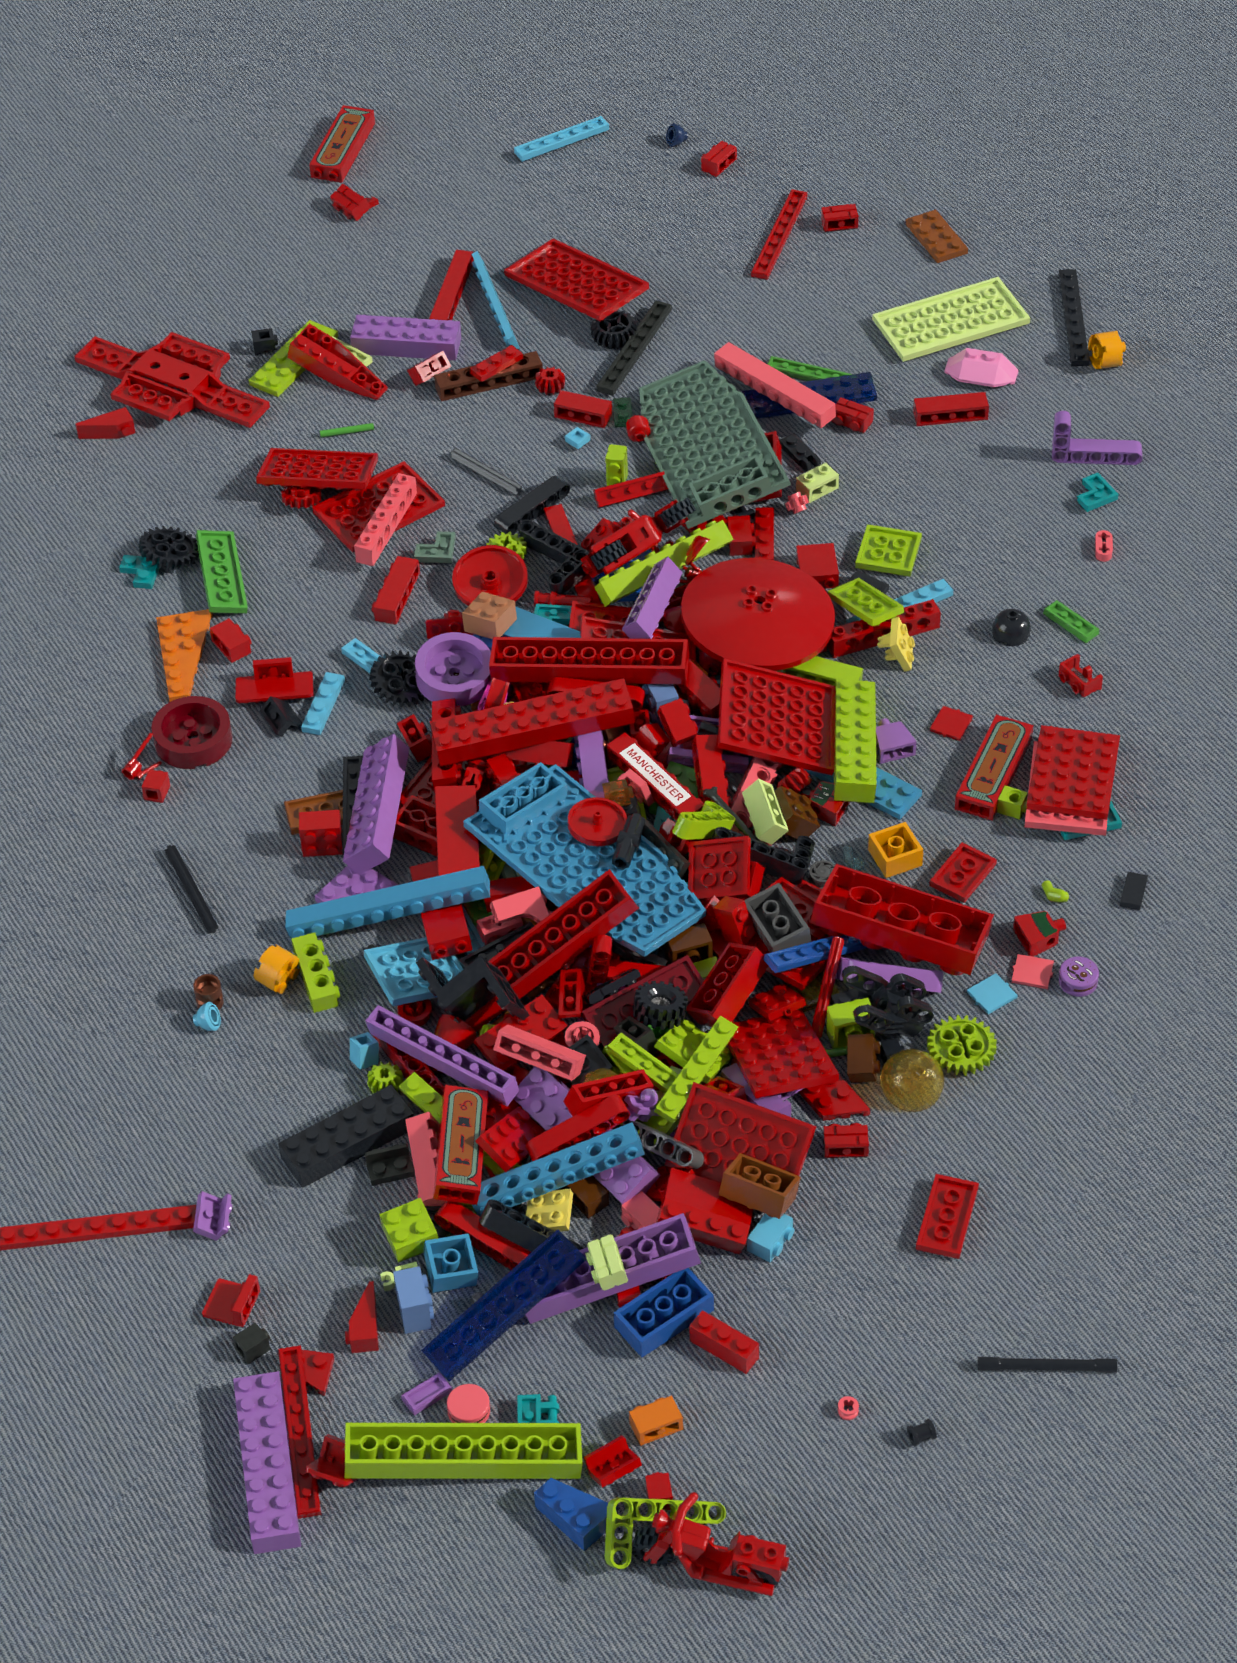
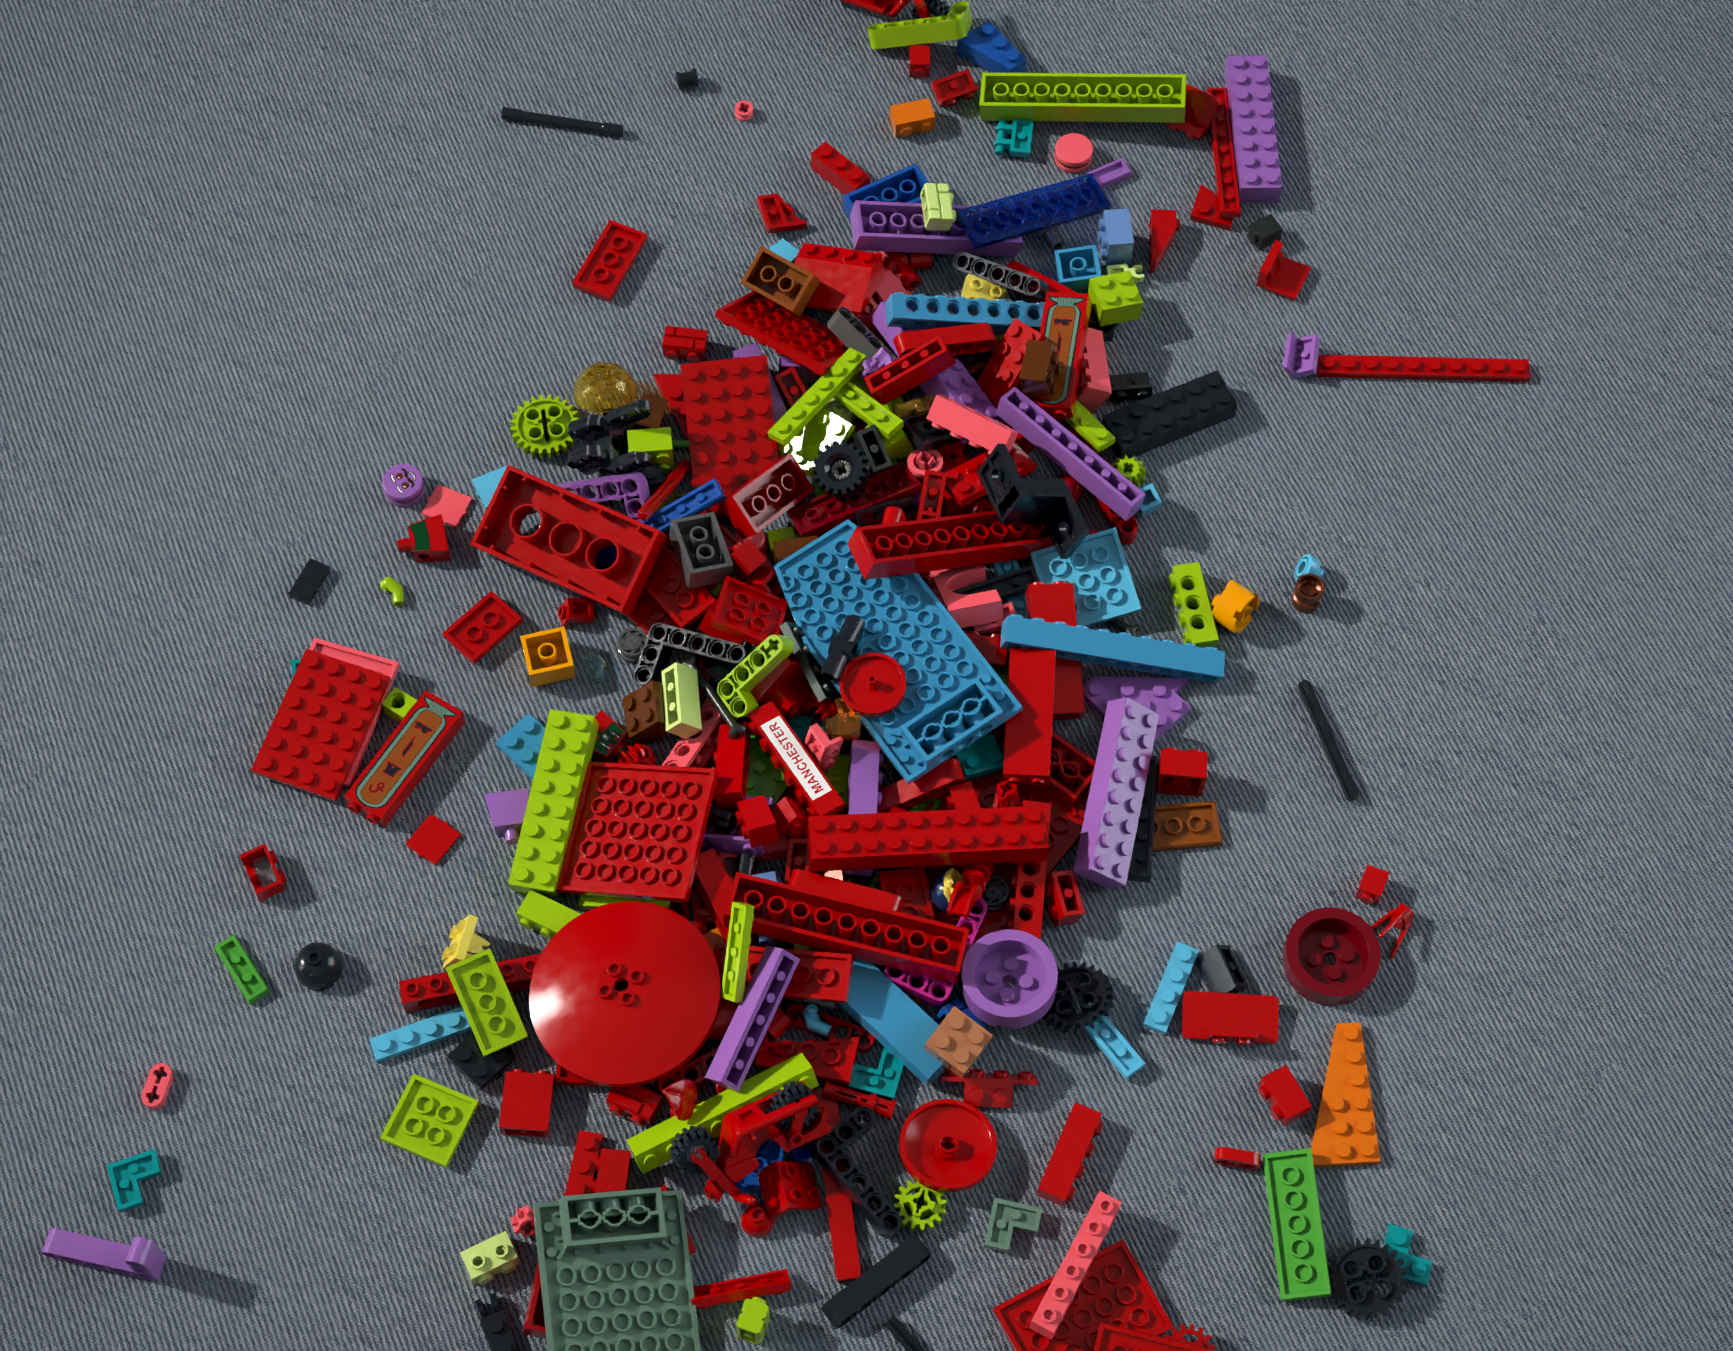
camera: 175 degrees left, 15 degrees up
(267, 604) = (1237, 1158): none -> red beam
(477, 1095) = (1040, 370): none -> reddish brown brick
(672, 623) = (737, 951): none -> lime plate
(781, 1290) = (778, 215): none -> red wing

